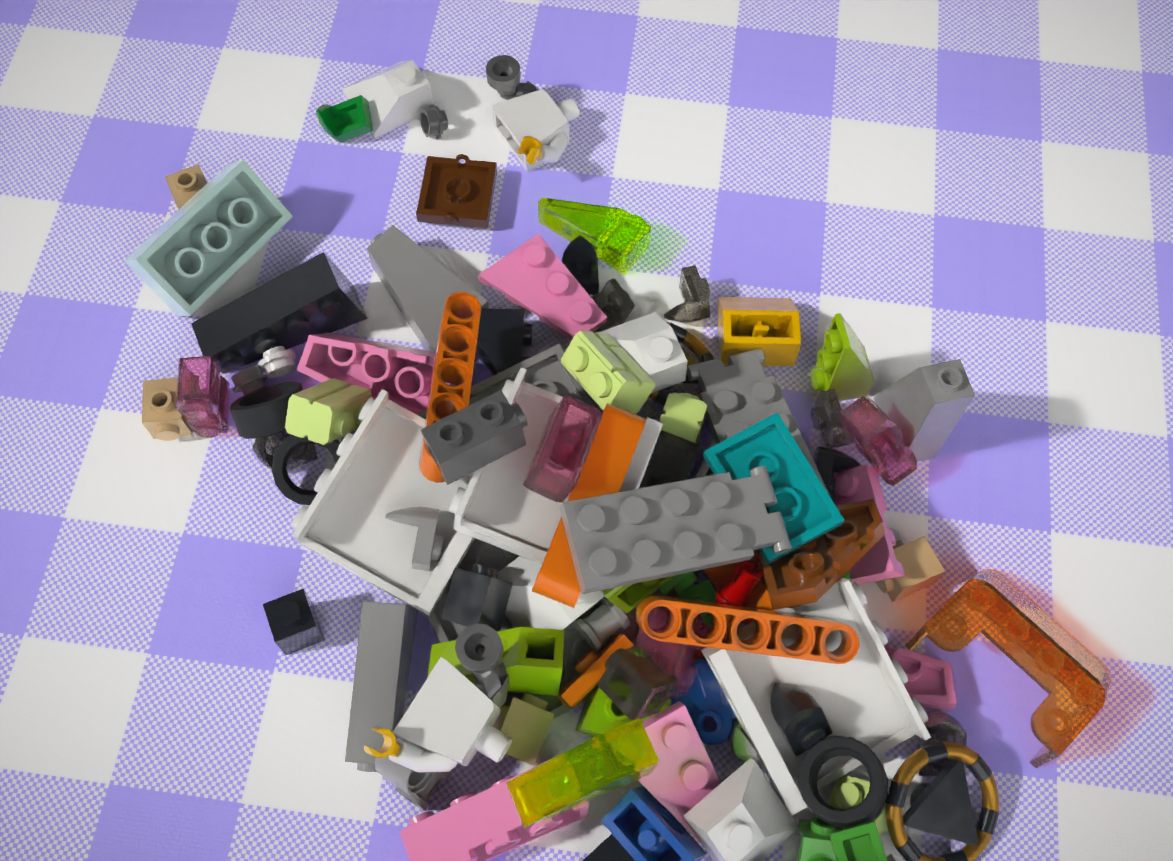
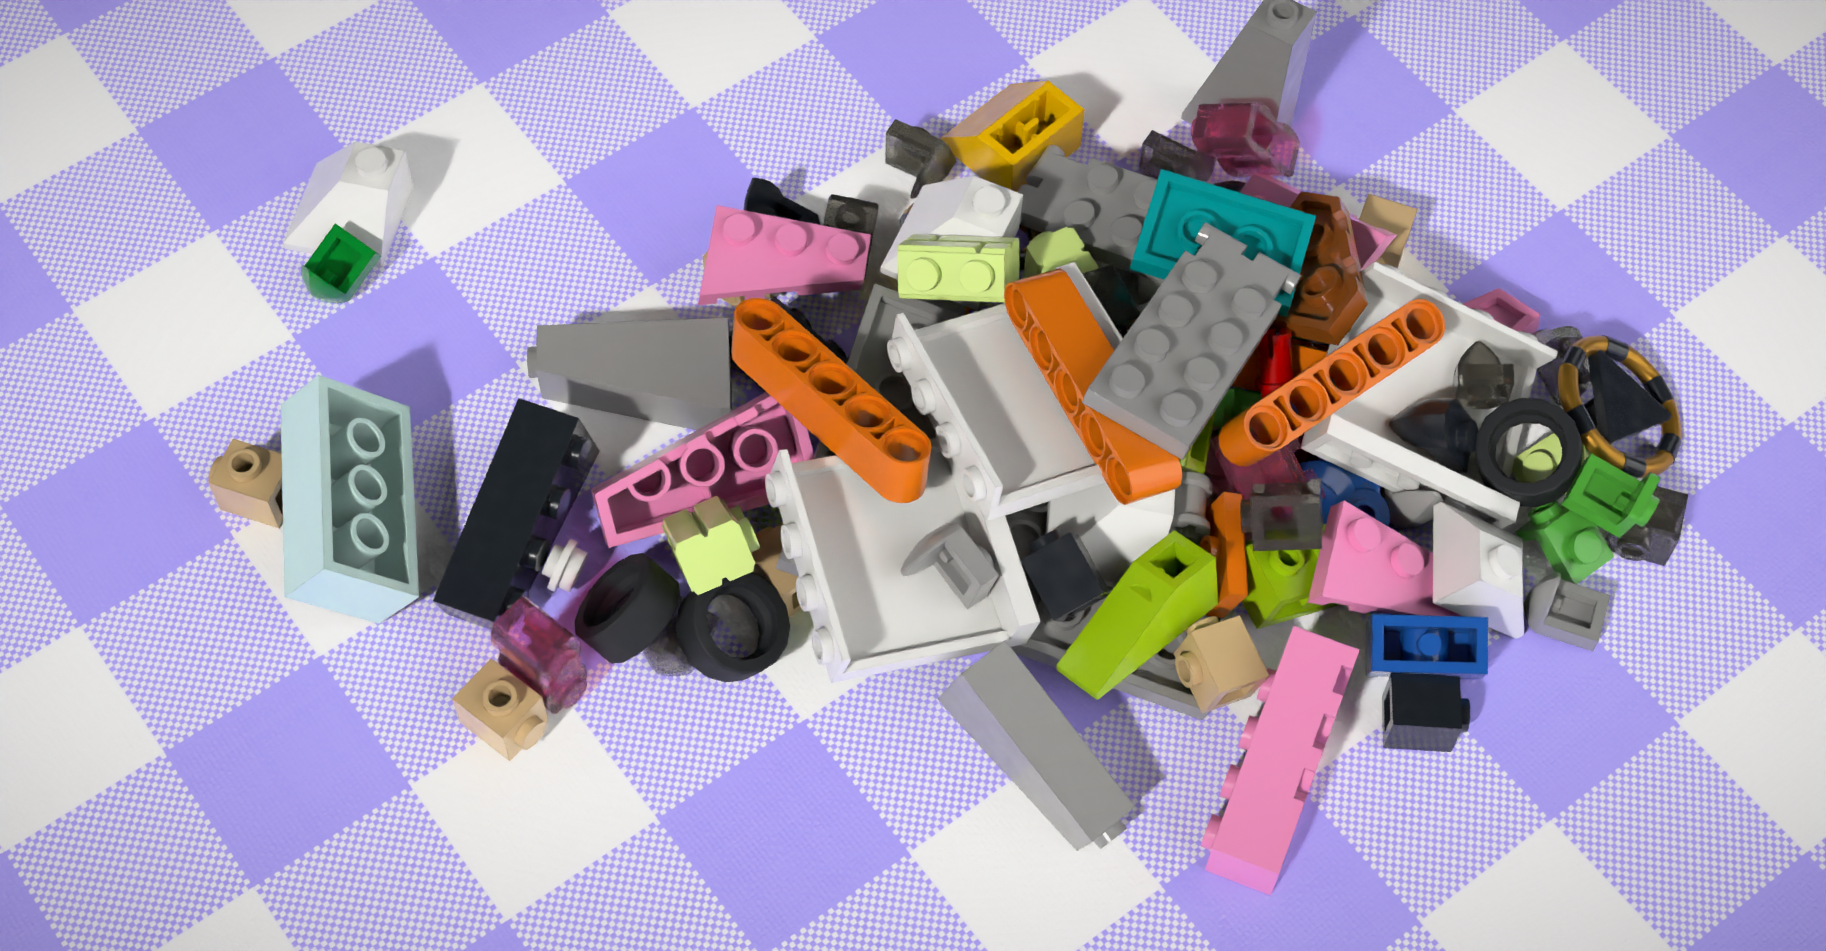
camera: 45 degrees left, 5 degrees down
(249, 380) = (560, 604): dark grey plate -> none
(293, 622) = (888, 779): black brick -> none
(410, 784) = (1163, 795): light grey piece -> none
(433, 121) = (437, 195): dark grey plate -> none
(450, 713) = (1166, 672): white torso -> none
(457, 191) = (552, 245): reddish brown plate -> none
(475, 436) = (942, 401): dark grey brick -> none
(529, 117) = (545, 112): white torso -> none
(563, 449) = (1020, 353): clear pink brick -> none
(583, 773) = (1335, 620): clear neon green slope -> none
(612, 231) = (768, 150): clear neon green slope -> none
(842, 363) = (1136, 99): lime slope -> none
(860, 709) = (1481, 378): none -> clear smoke plate
(1036, 644) = (1477, 212): clear orange windscreen -> none

